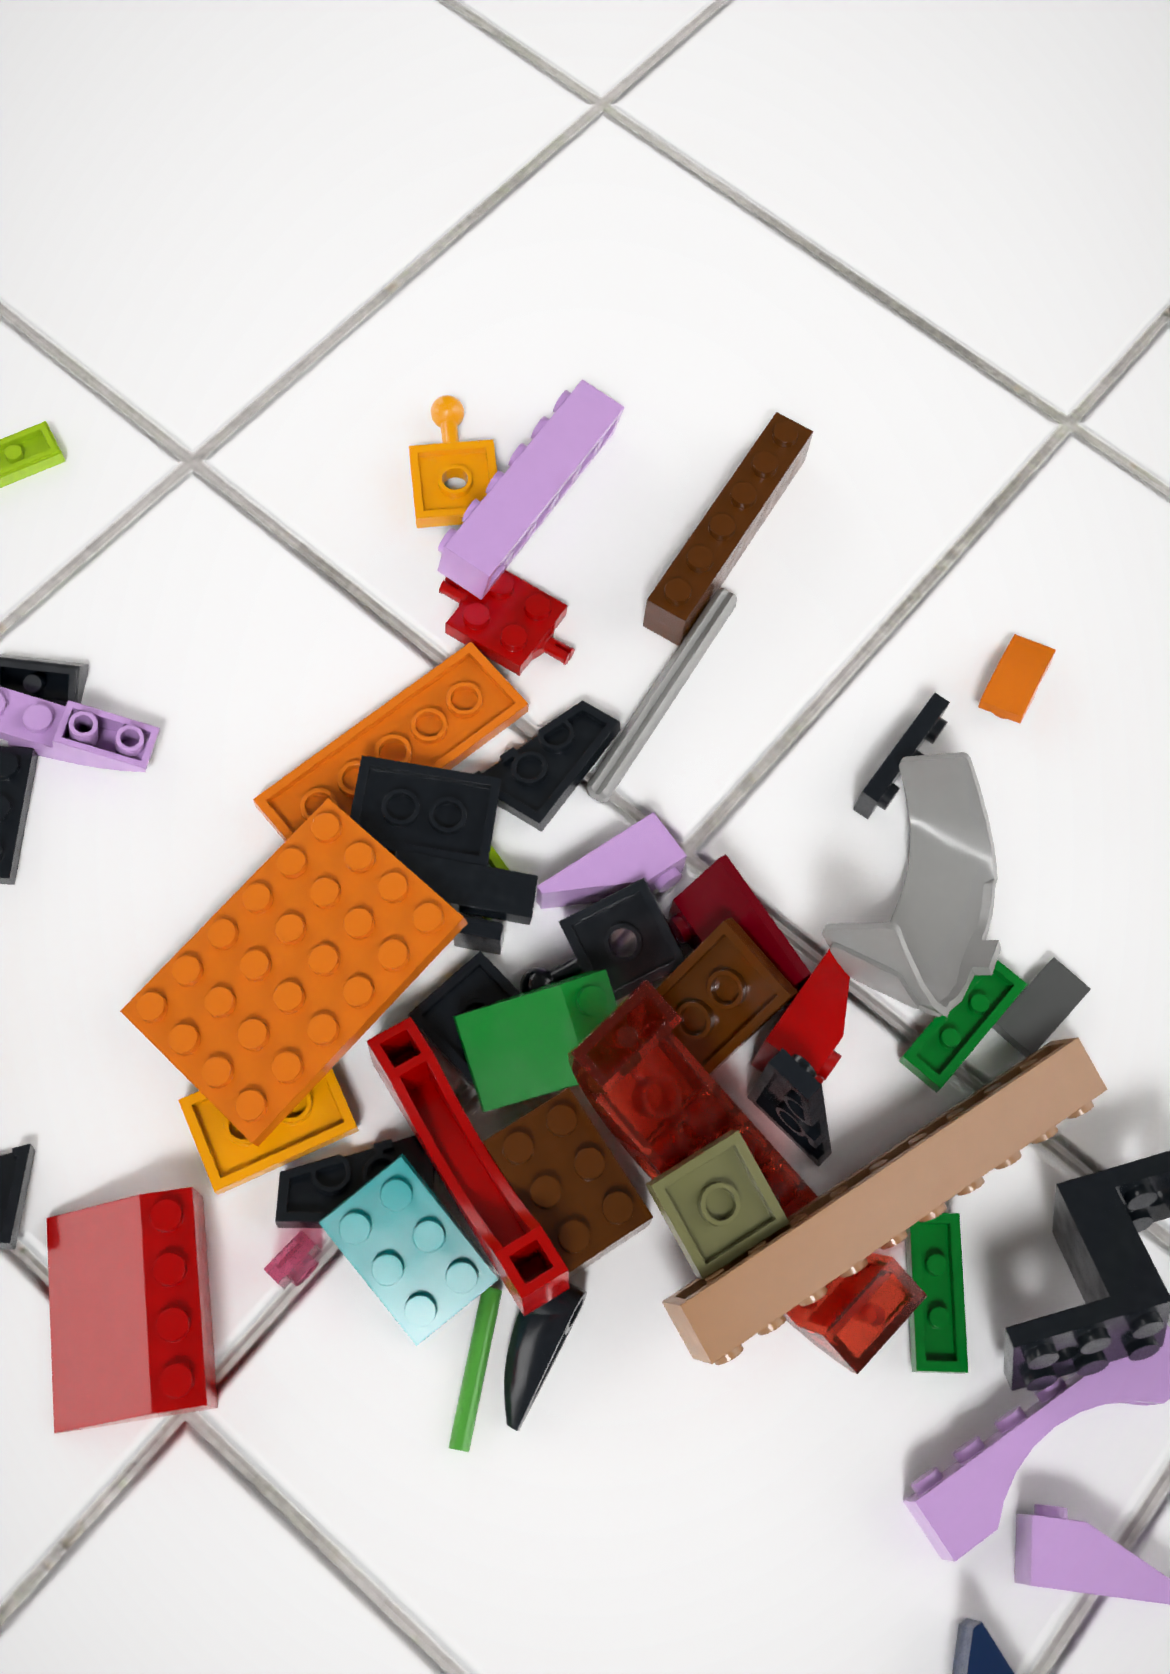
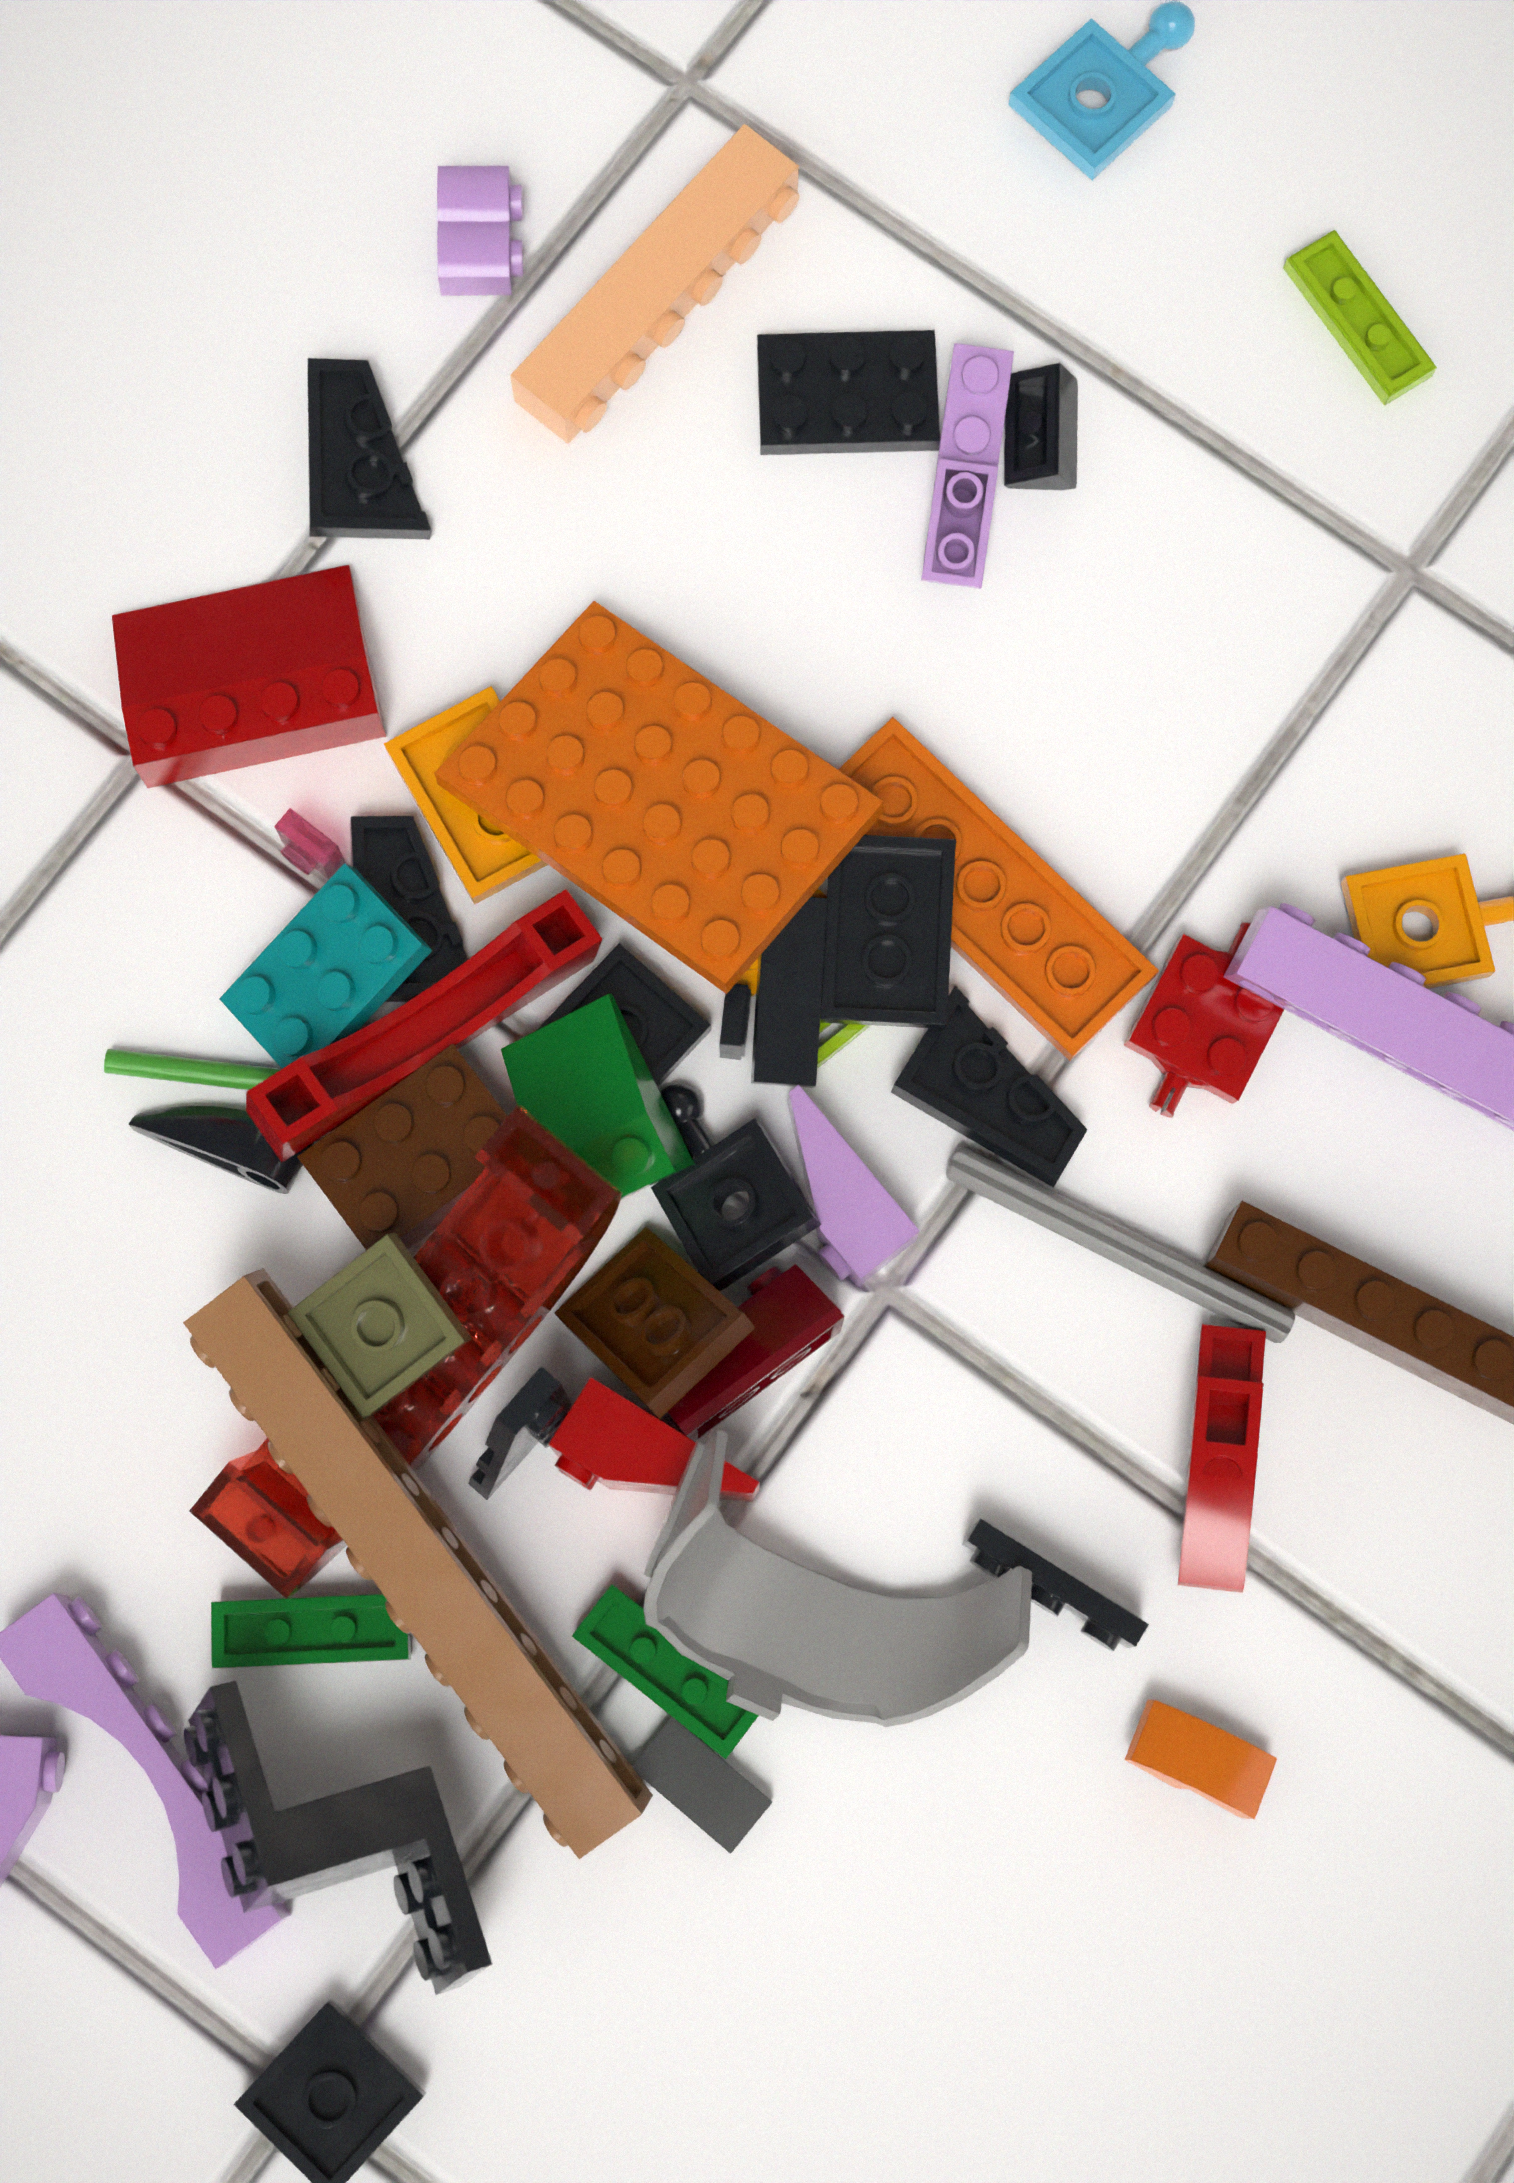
camera: 90 degrees right, 10 degrees up
(818, 635) = (1222, 1458): none -> red slope

